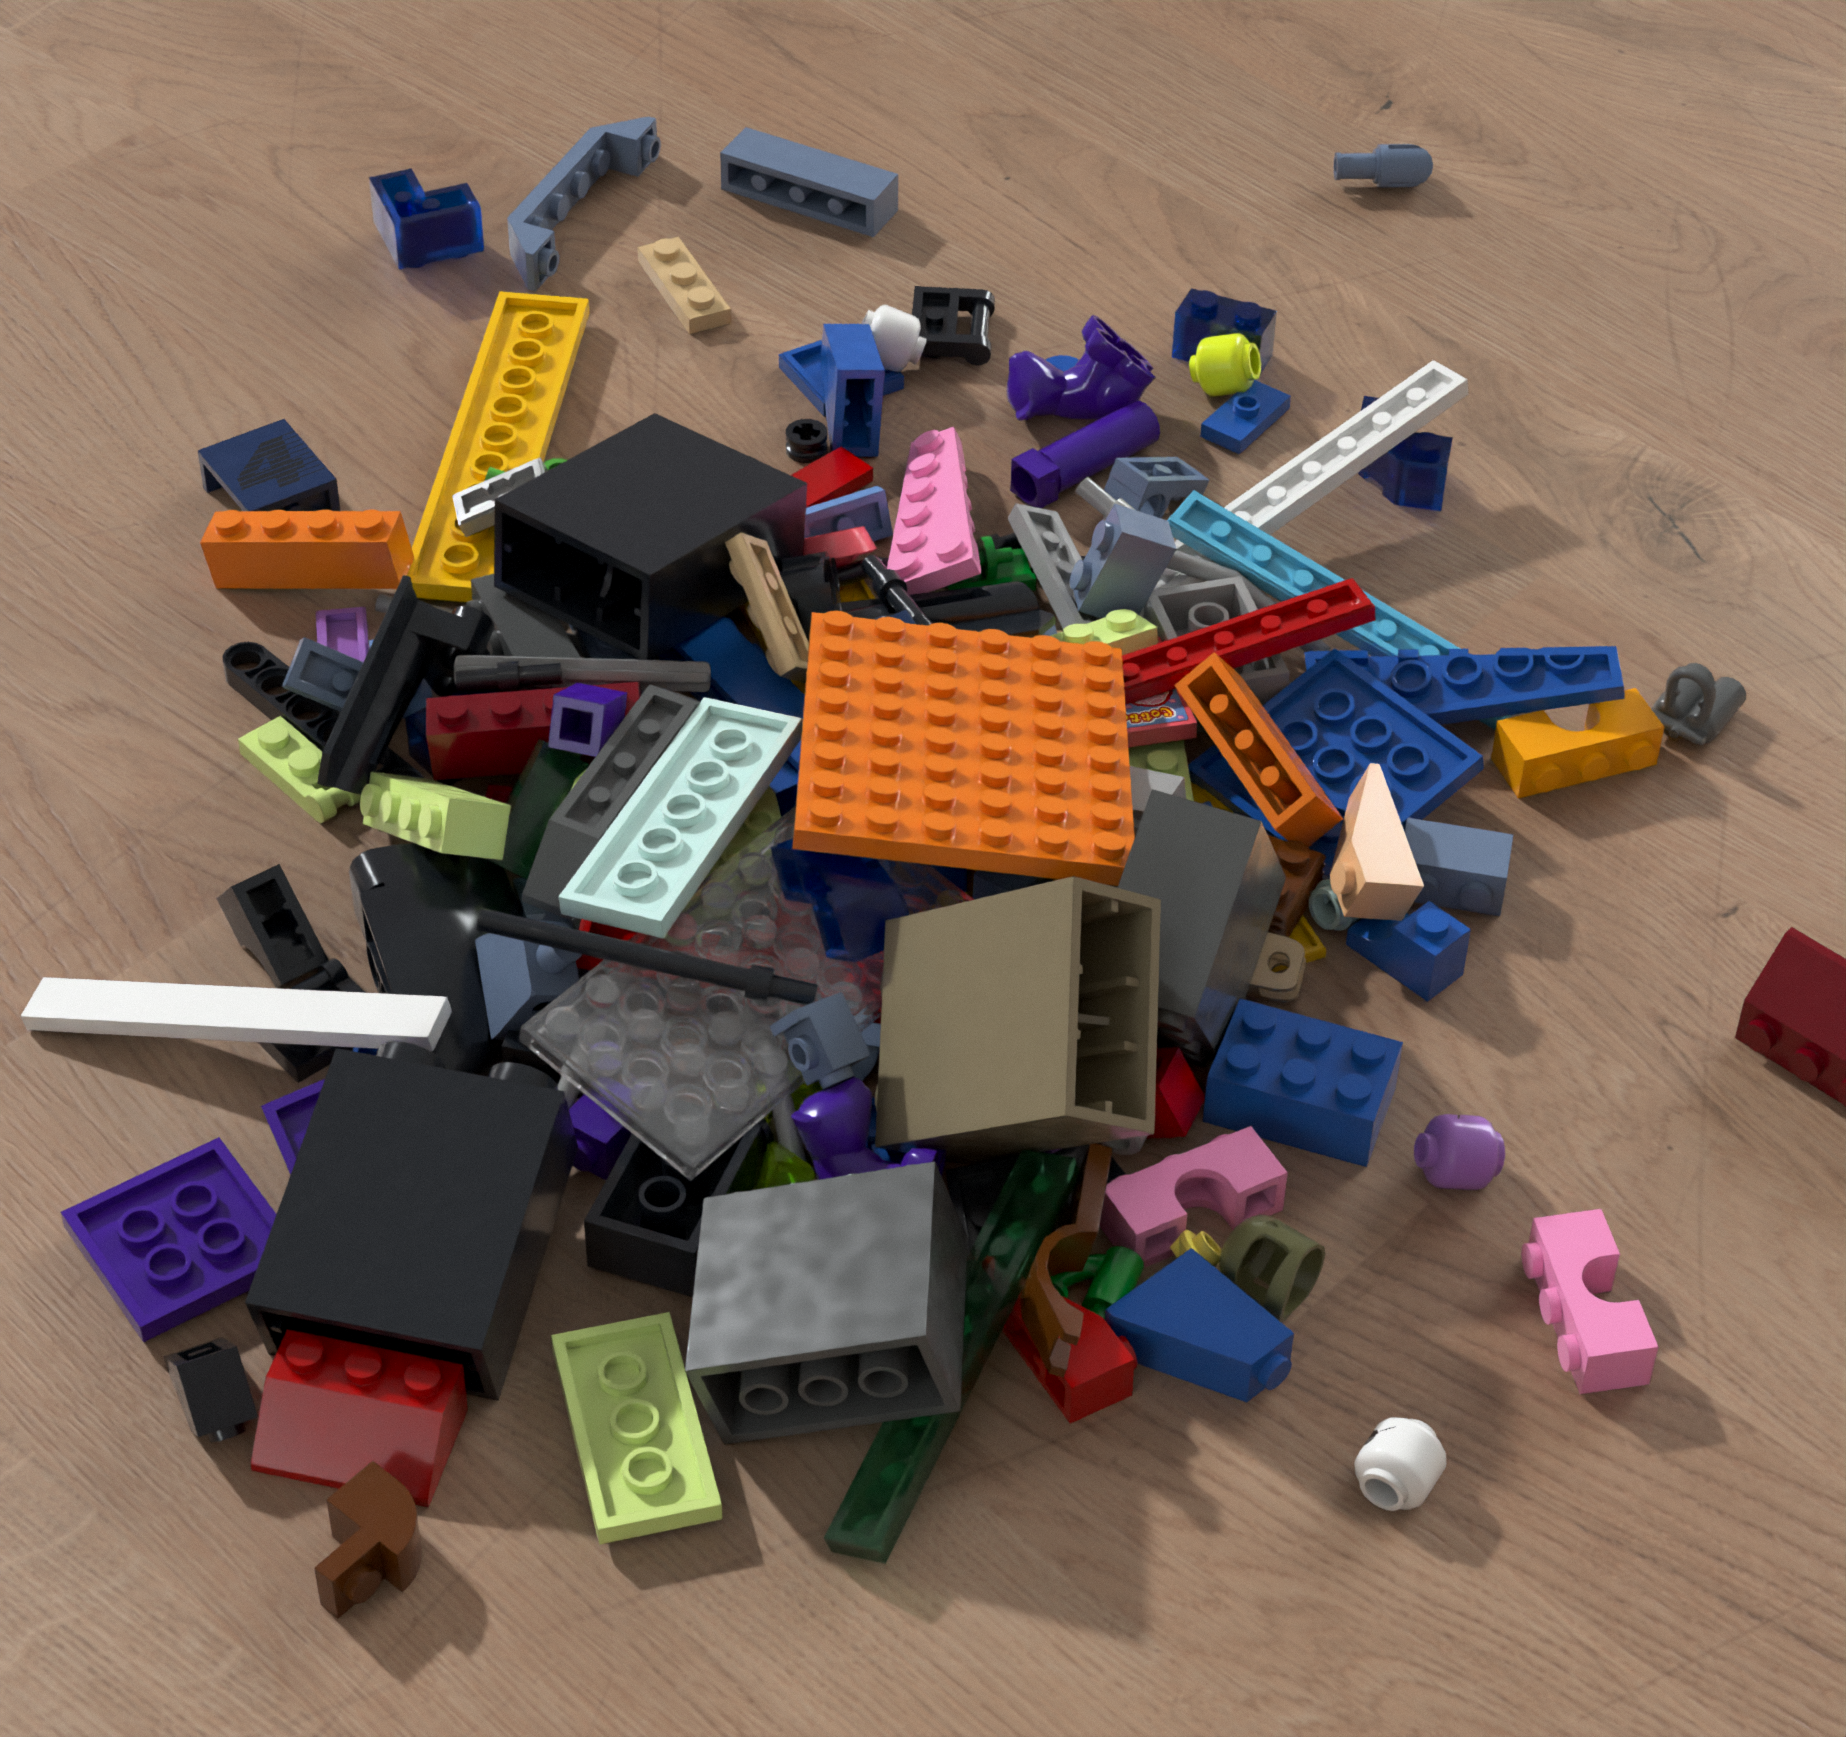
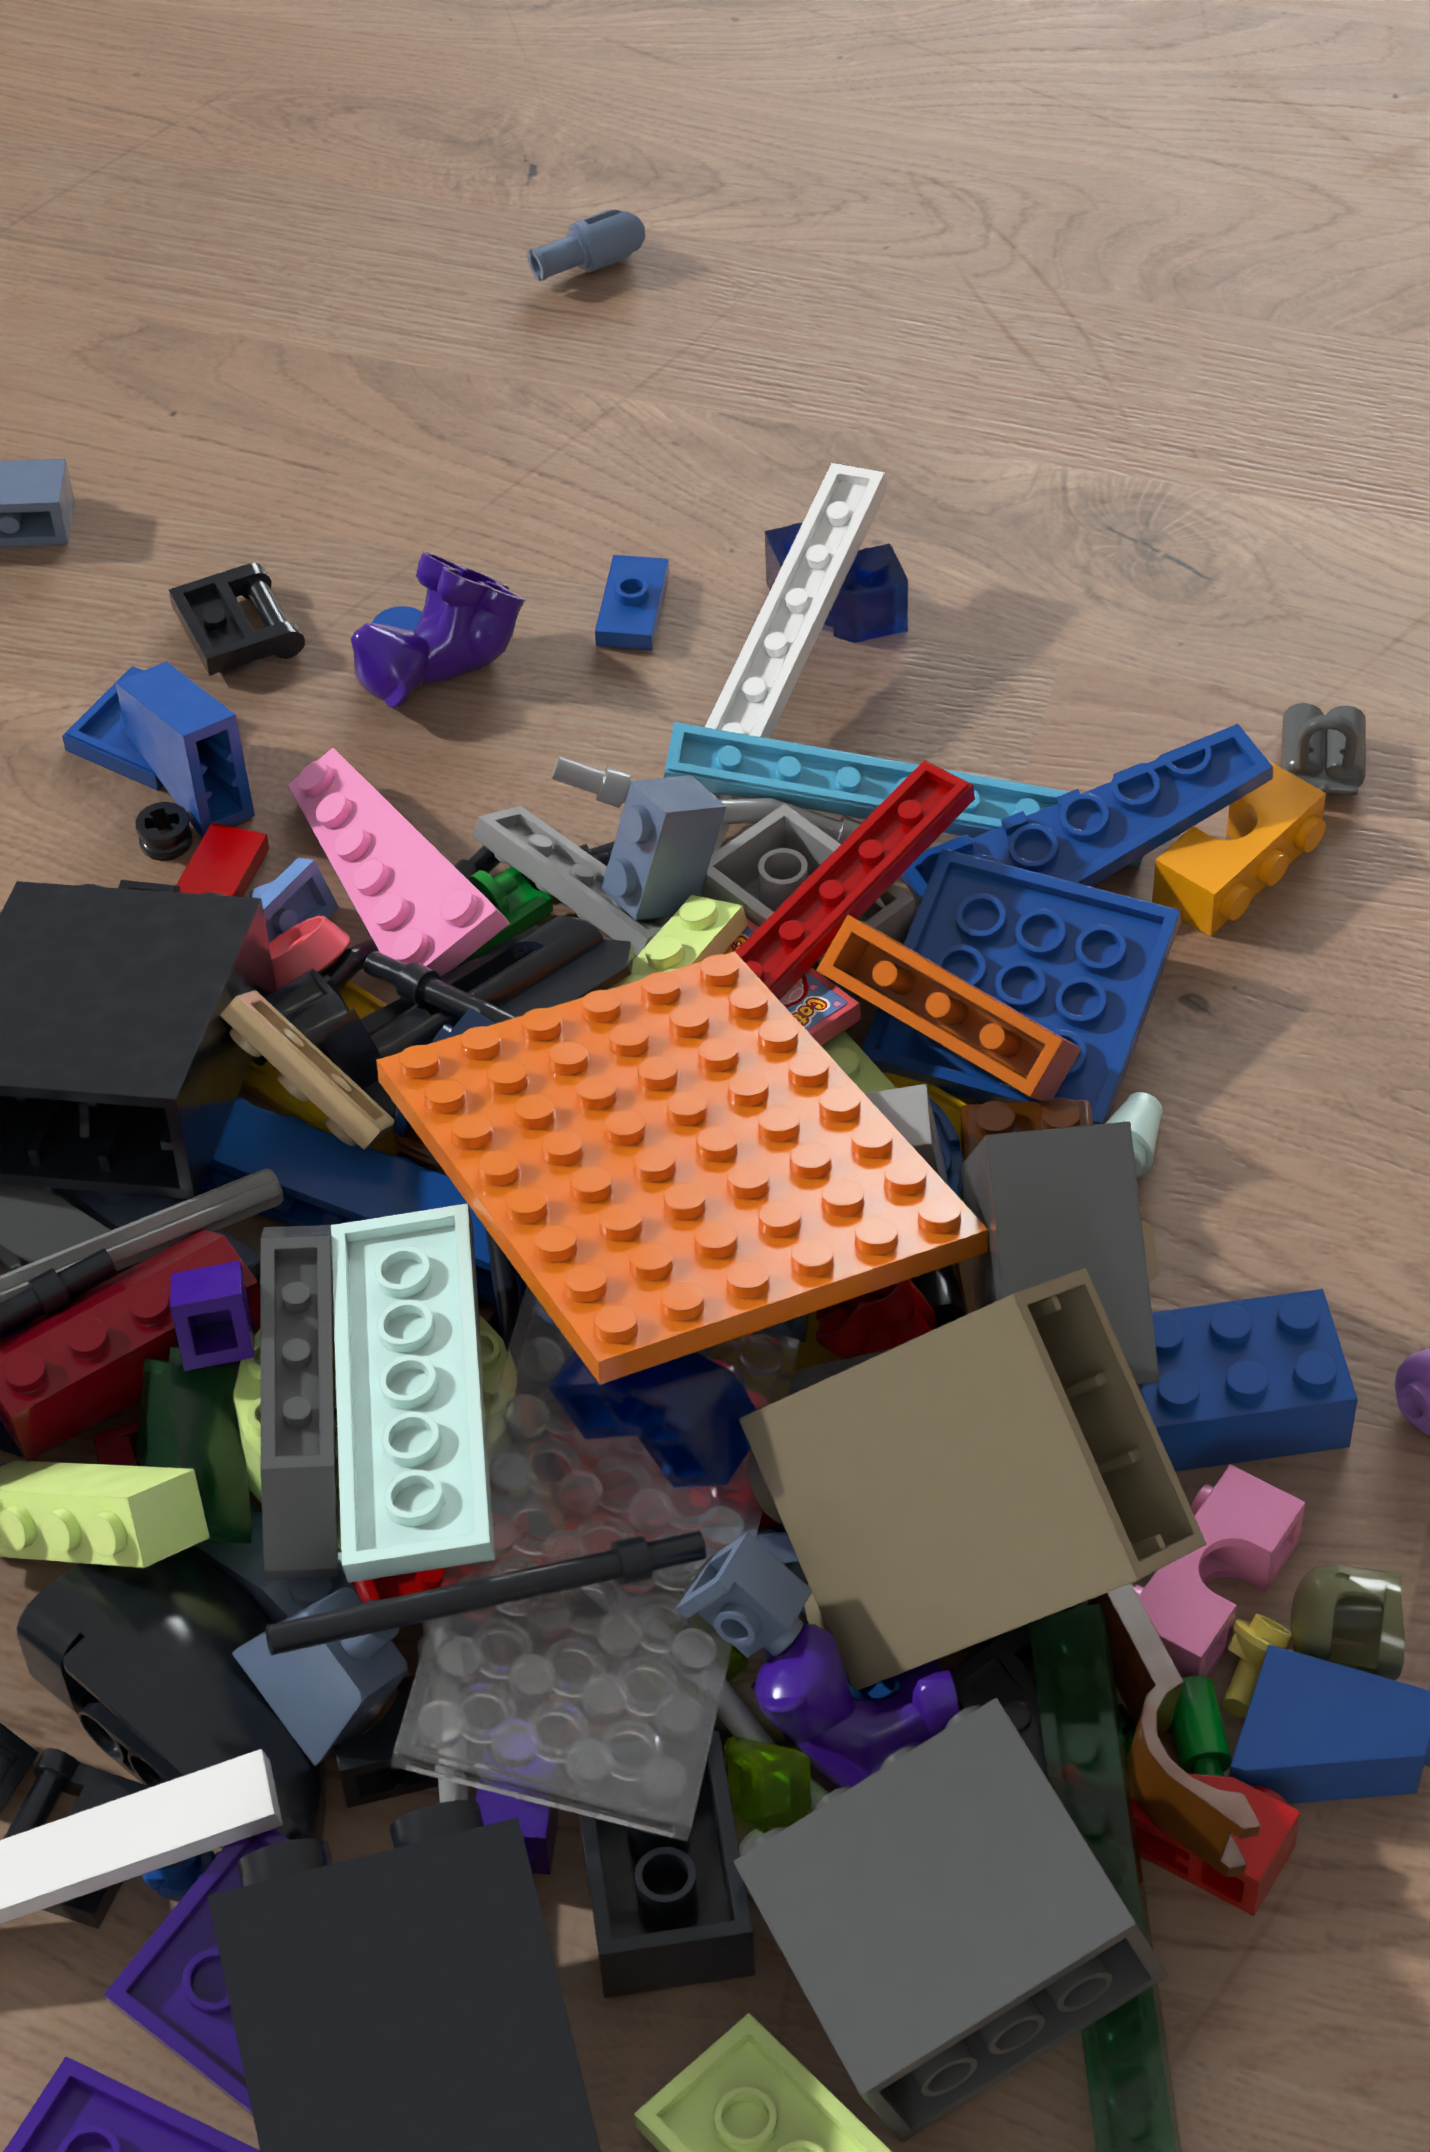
camera: 25 degrees left, 5 degrees up
(895, 336) = (196, 655): white head -> none
(1045, 473) = (478, 744): dark purple piece -> none
(1153, 482) = (595, 726): sand blue plate -> none
(1209, 315) = (552, 513): clear blue brick -> none
(1225, 364) = (580, 550): neon yellow head -> none
(1373, 859) = (1142, 1073): light nougat slope -> none
(1420, 951) = (1233, 1164): blue arch -> none
(1460, 865) = (1213, 1050): sand blue brick -> none

